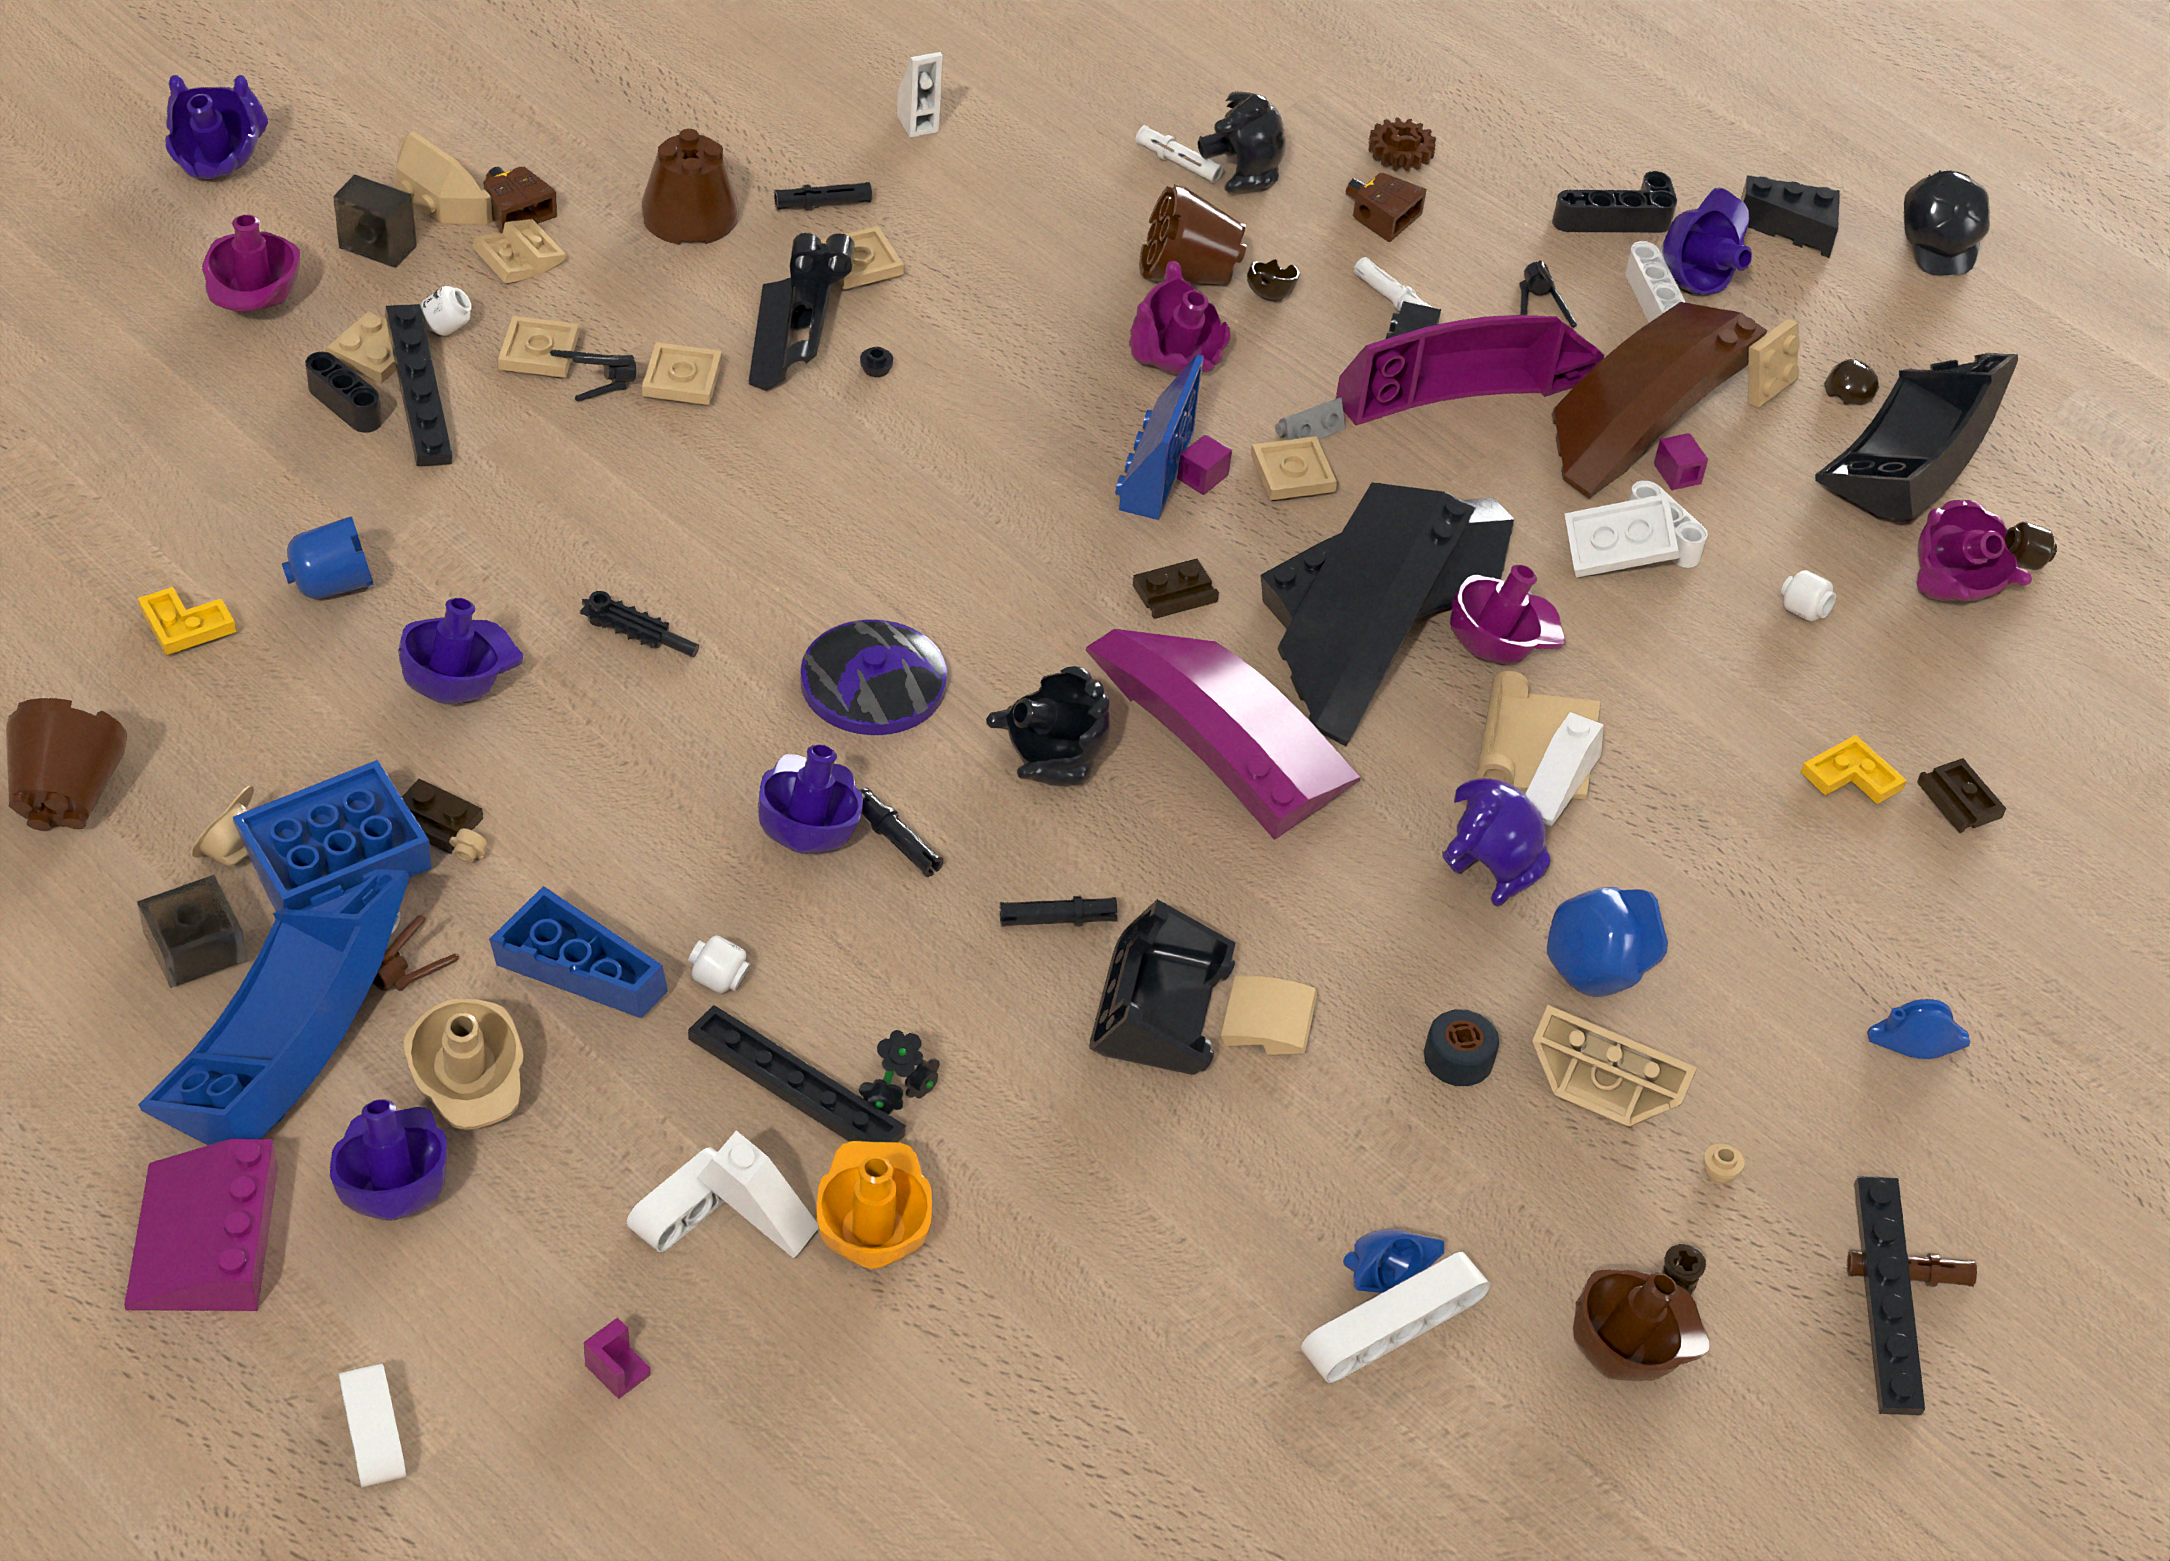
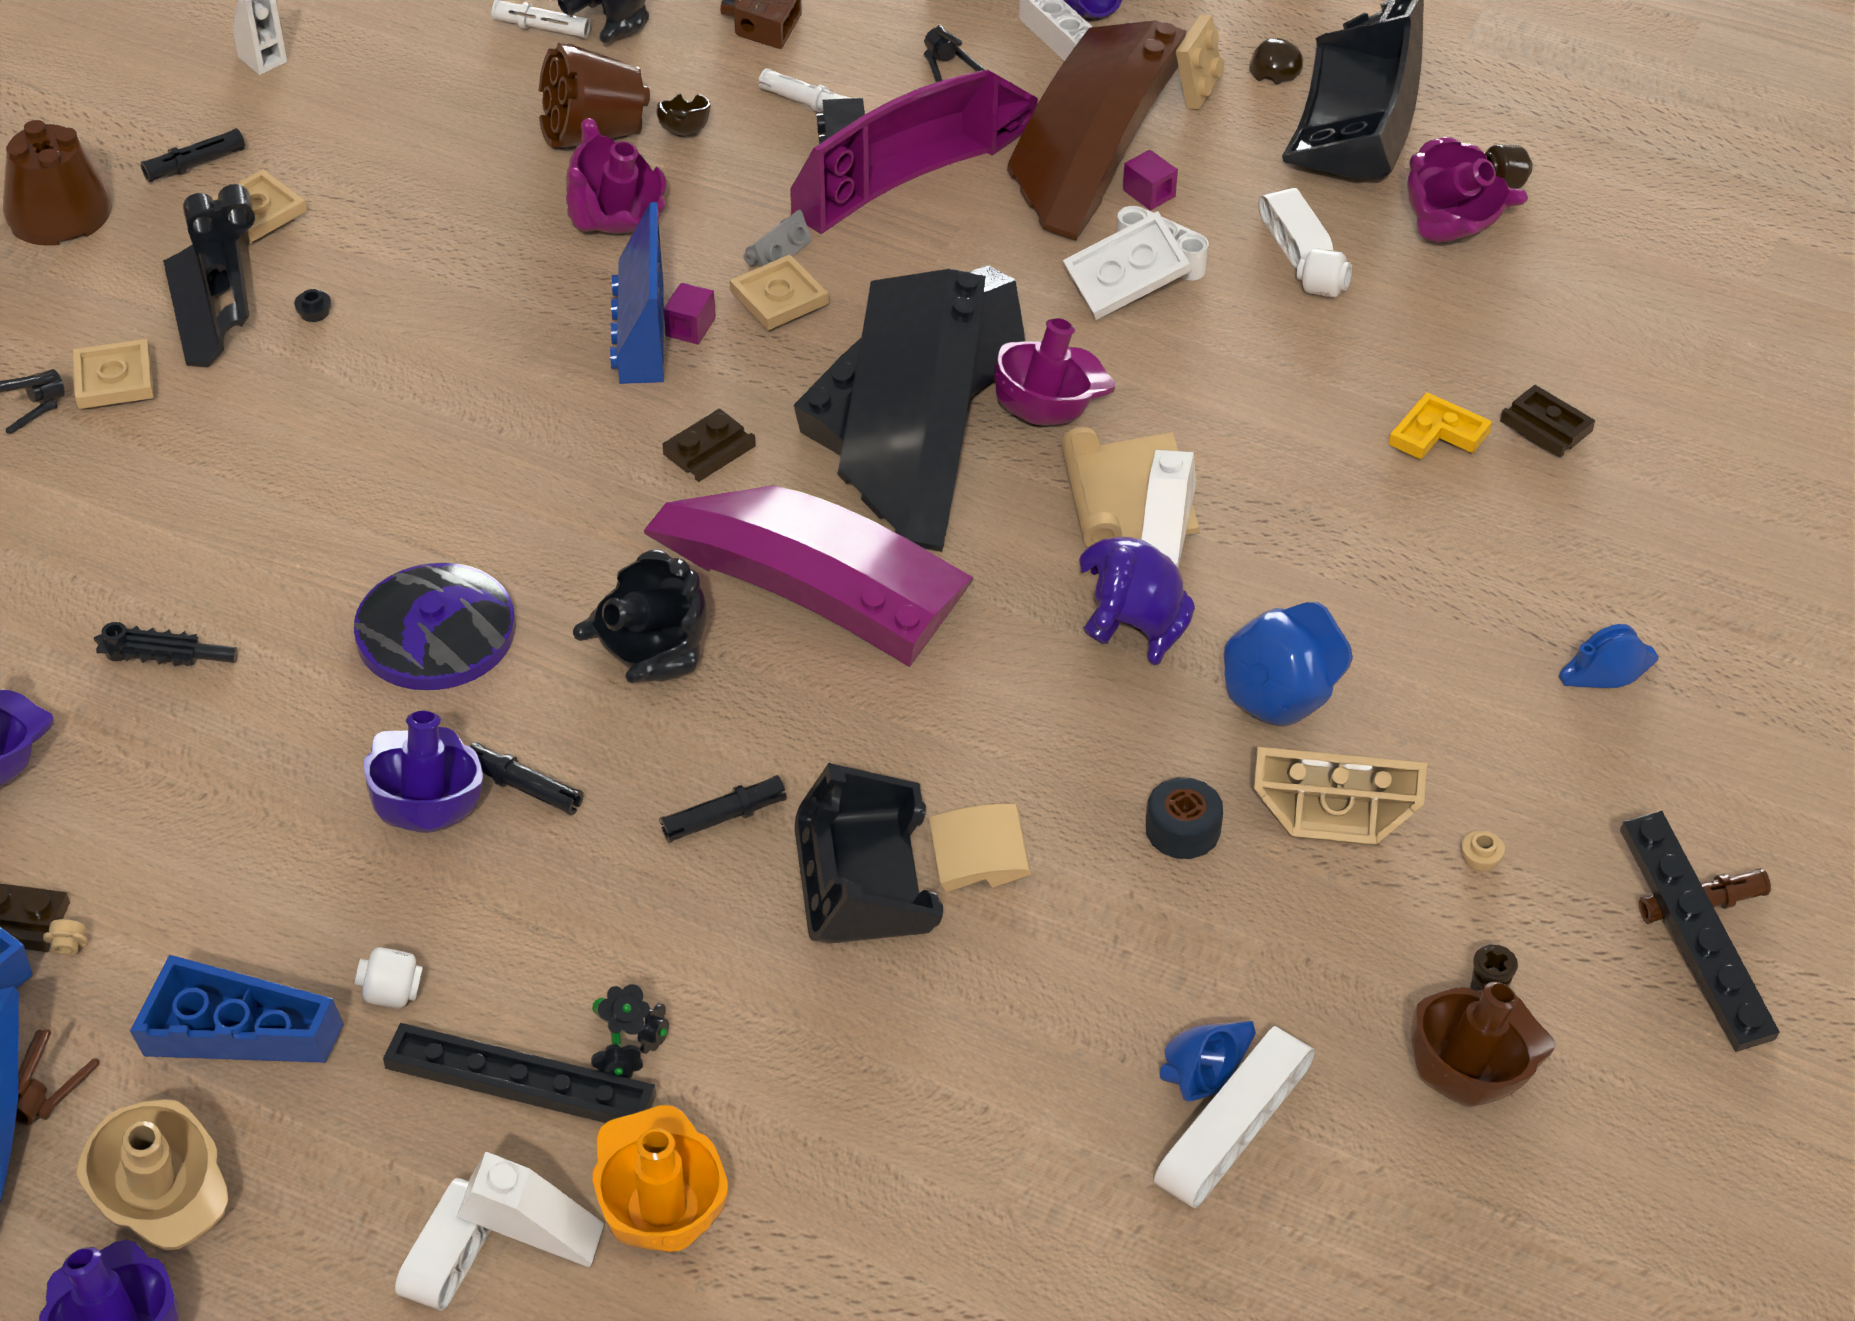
camera: 15 degrees left, 0 degrees up
(1799, 541) = (1293, 224): none -> white beam

